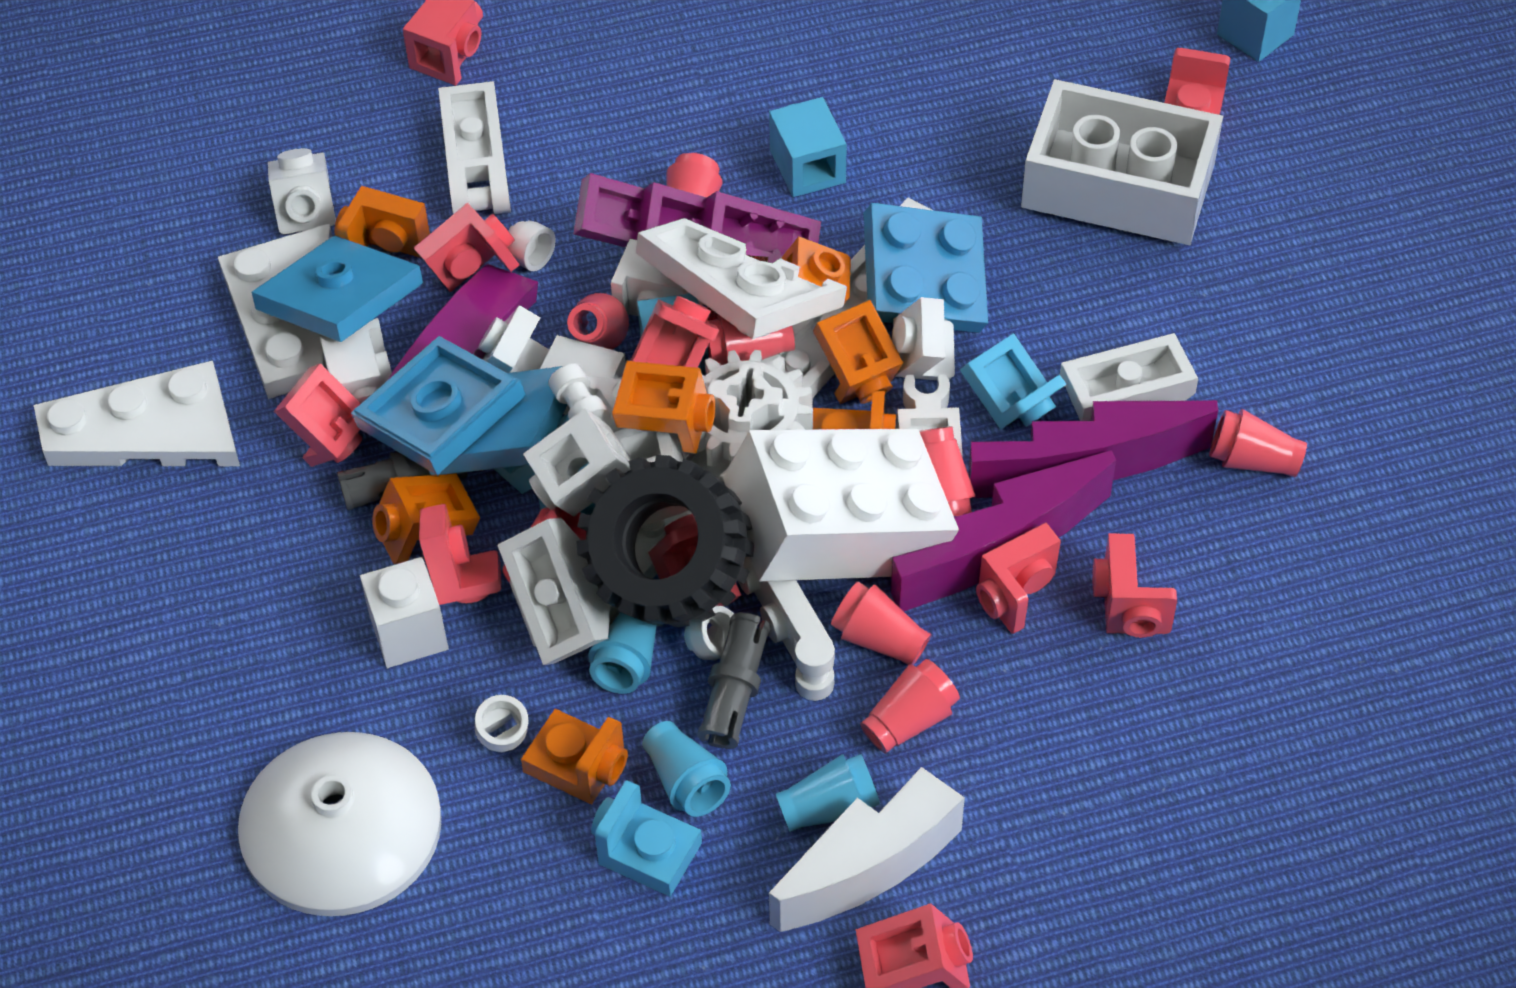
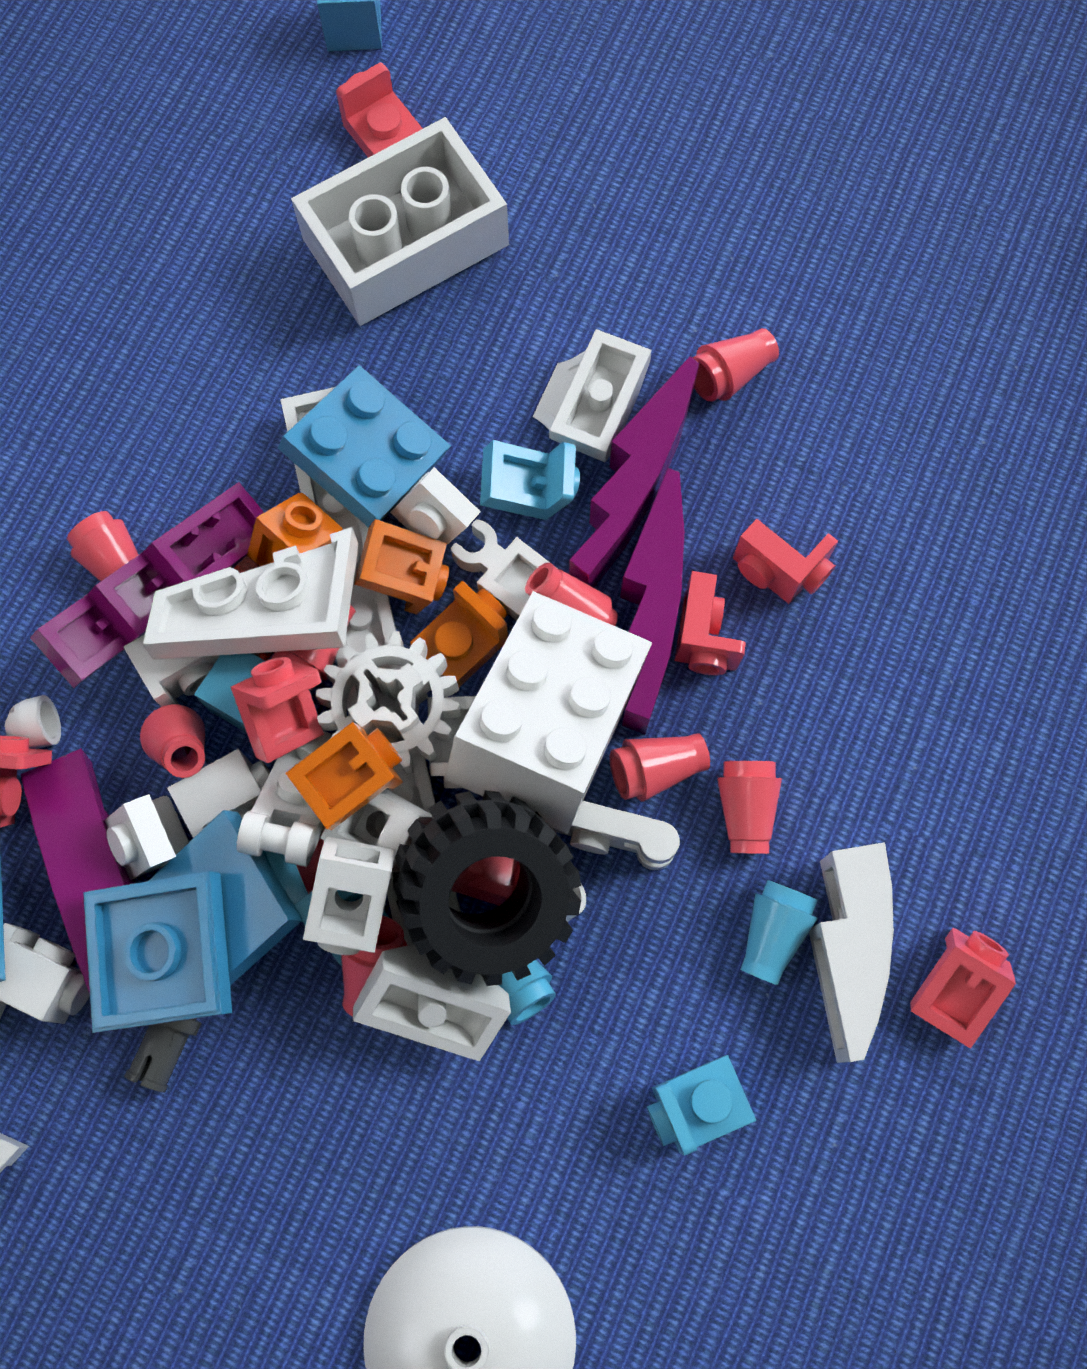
camera: 50 degrees left, 20 degrees up
(321, 415) = (61, 1052): coral bracket -> none
(398, 513) = (229, 1047): orange bracket -> none
(404, 612) = (324, 1136): white brick -> none
(450, 566) = (315, 1056): coral bracket -> none
(495, 713) = (513, 1137): white hinge -> none
(576, 755) = (575, 1095): orange bracket -> none
(688, 772) = (662, 1021): medium azure cone -> none
(734, 681) = (618, 920): dark grey pin -> none
(807, 146) = (152, 426): medium azure brick -> none

